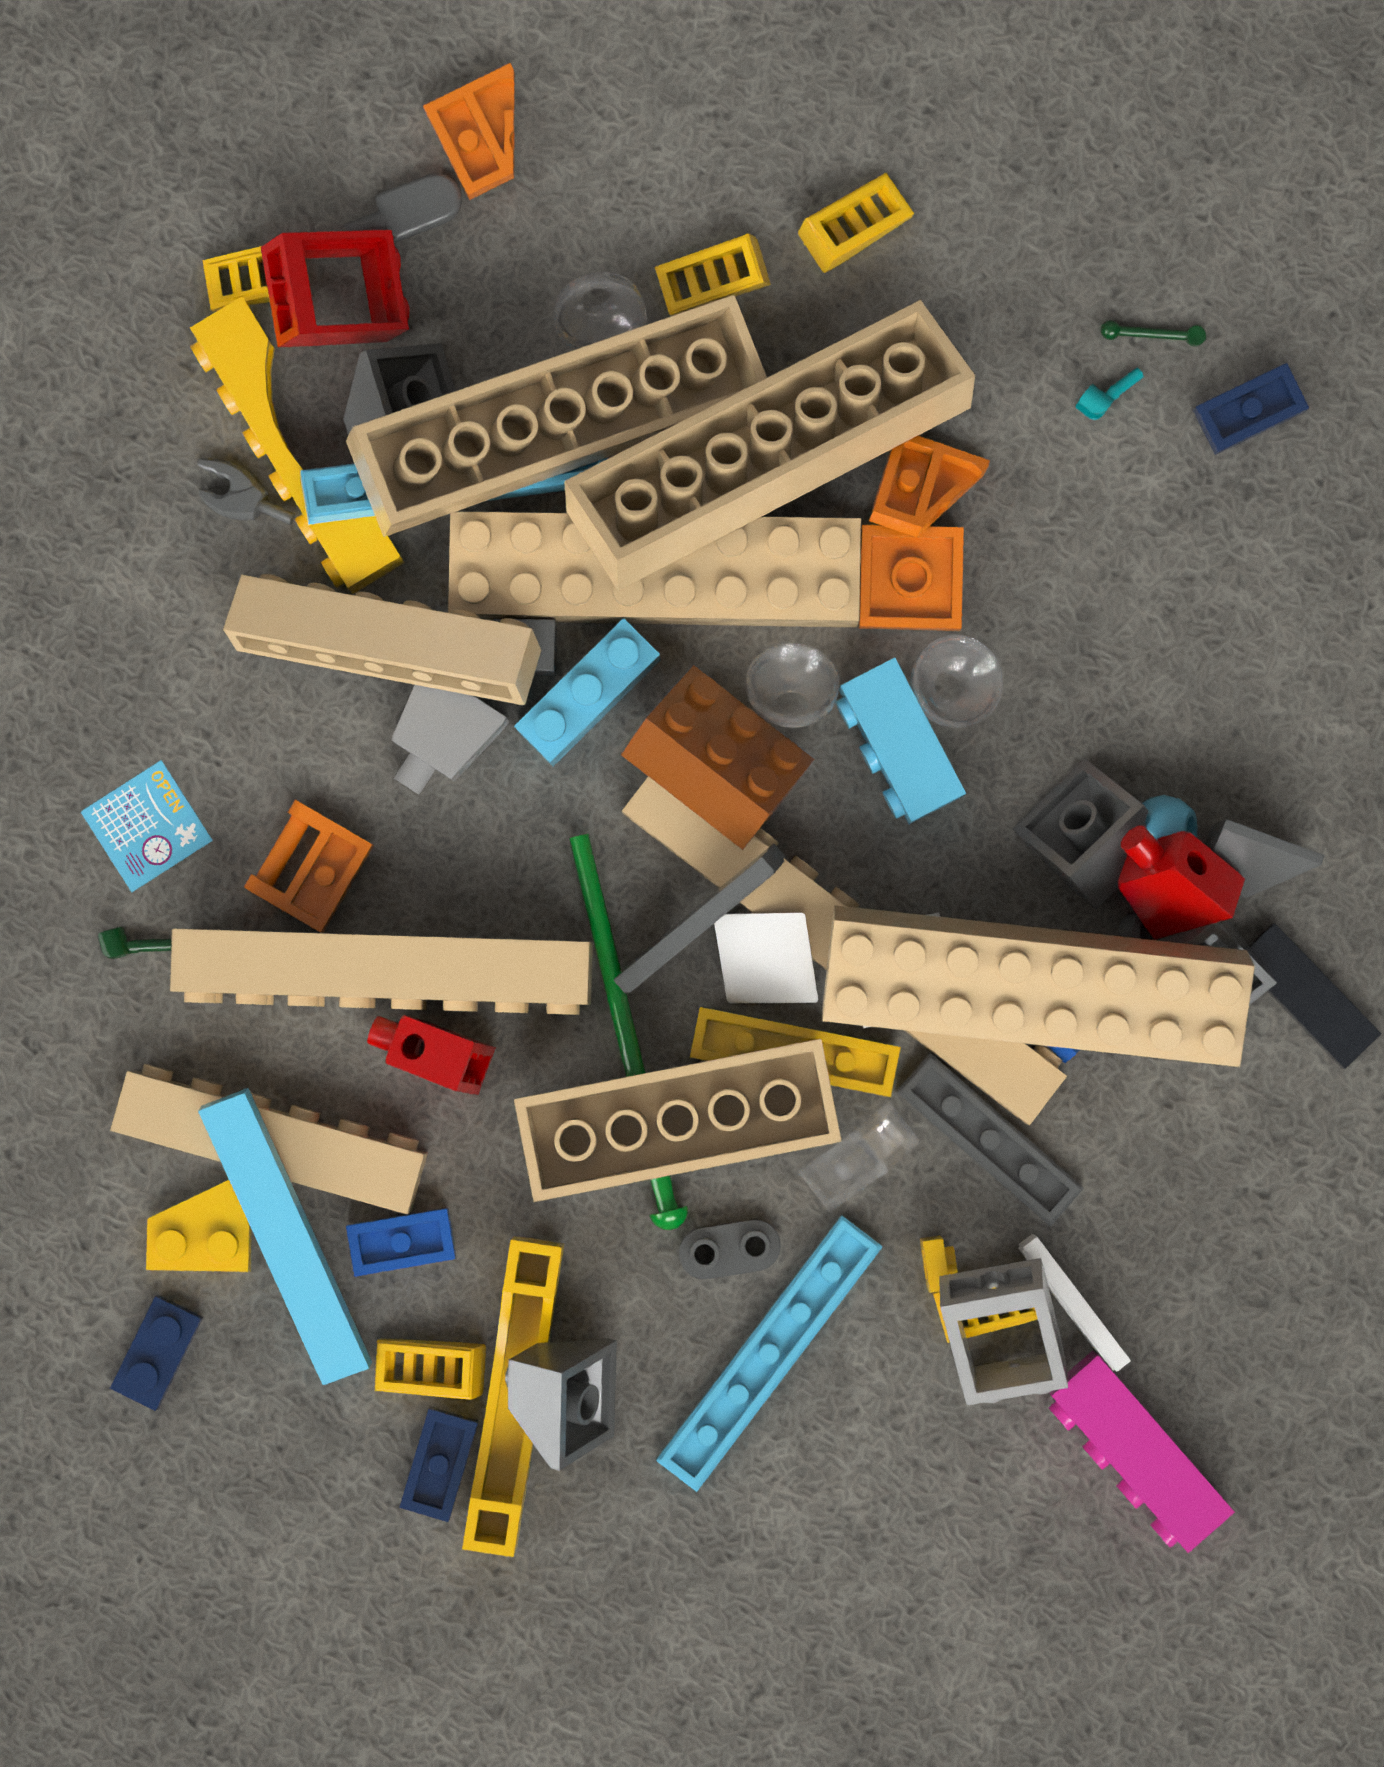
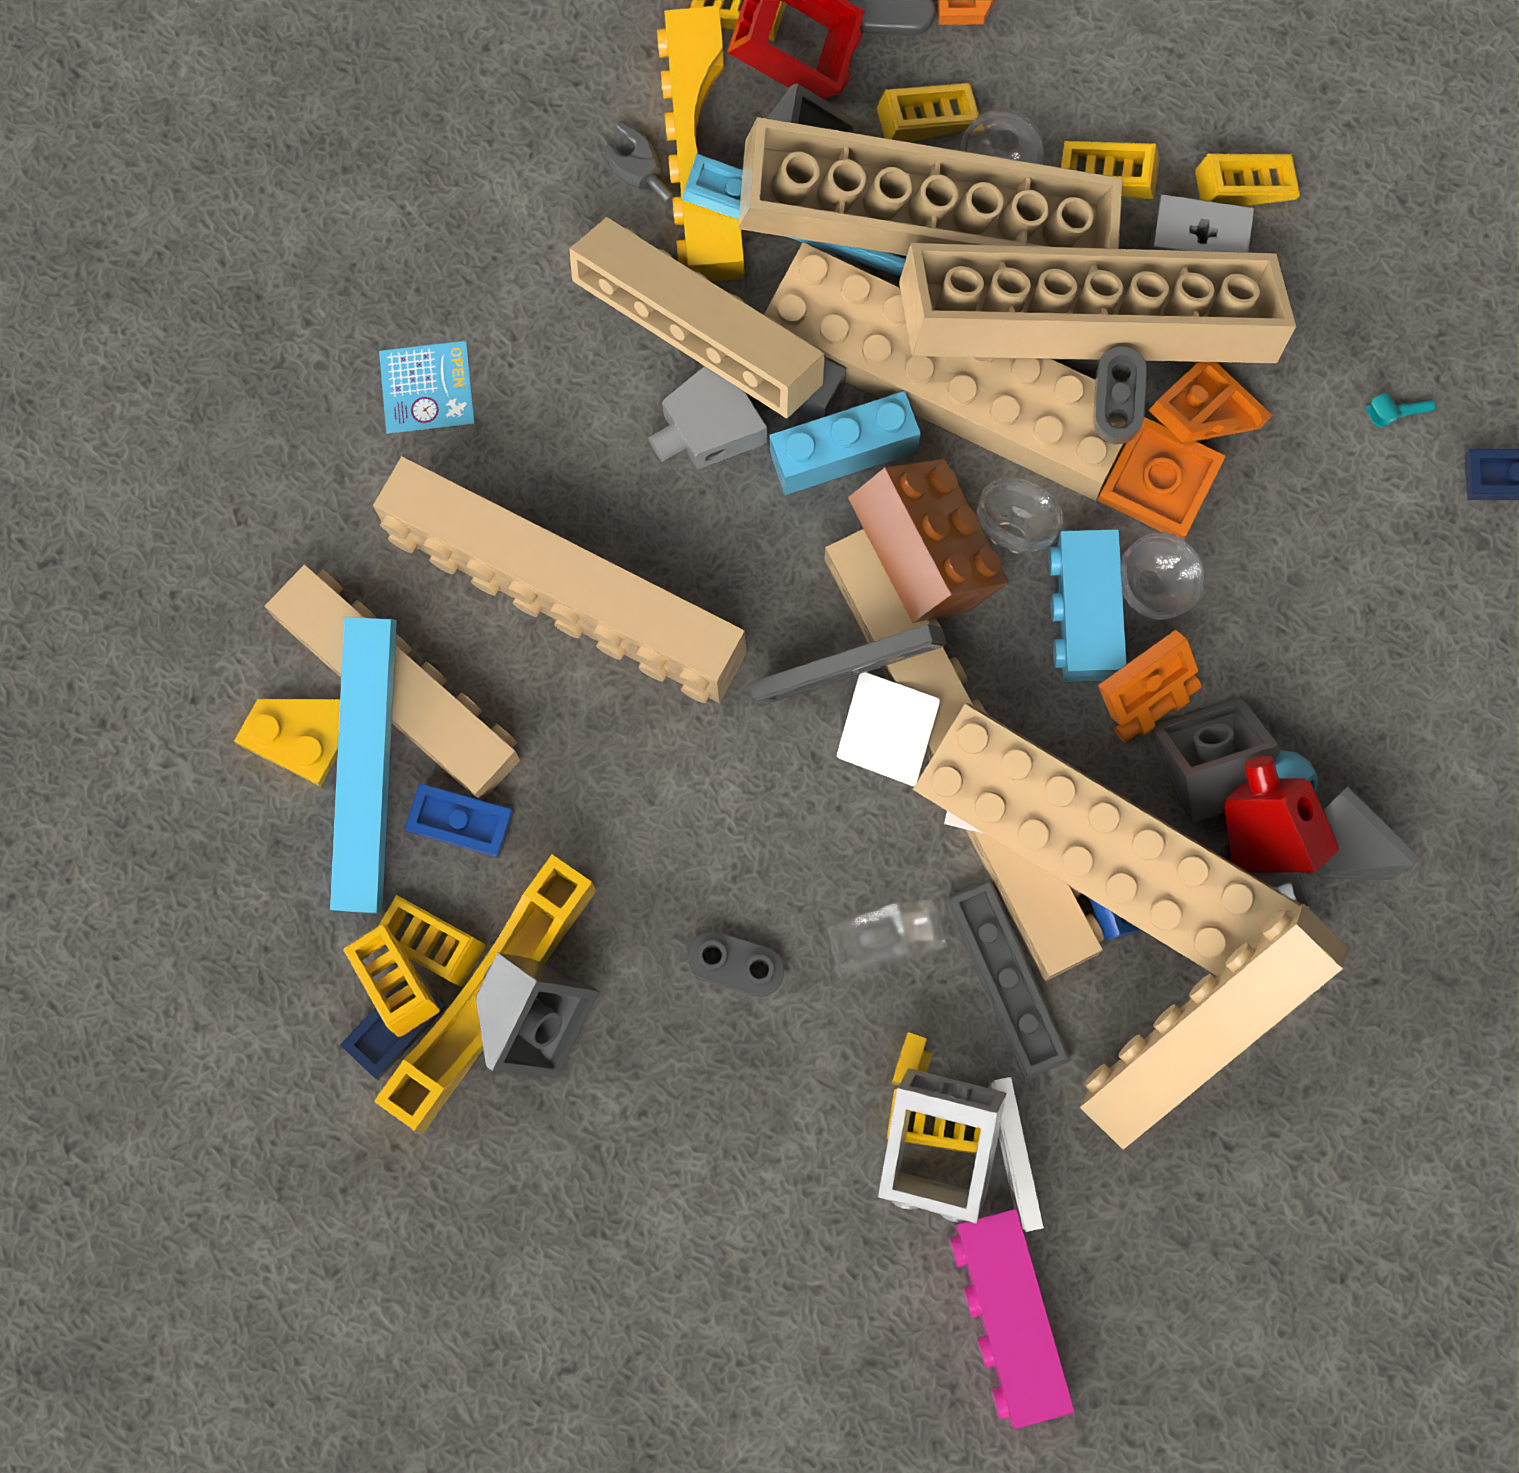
camera: 20 degrees right, 10 degrees down
(115, 944) = (350, 468): dark green hand -> none
(156, 1352) = (205, 816): dark blue plate -> none
(323, 874) = (551, 488): orange plate -> none
(444, 1422) = (409, 1005): none -> yellow slope
(447, 1056) = (568, 673): red torso -> none
(498, 327) = (929, 126): none -> yellow slope
(669, 1214) = (699, 907): green bar -> none
(677, 1120) = (745, 821): tan brick -> none
(769, 1353) = (725, 1071): medium azure tile -> none
(808, 302) = (1182, 220): none -> light grey brick
(836, 530) = (1120, 398): none -> dark grey plate
(849, 1060) = (874, 822): yellow plate -> none
(996, 797) = (1151, 686): none -> orange plate
(1193, 336) = (1491, 397): dark green hinge -> none
(1203, 1110) = (1214, 1025): none -> brick
(1313, 999) = (1354, 1003): black tile -> none

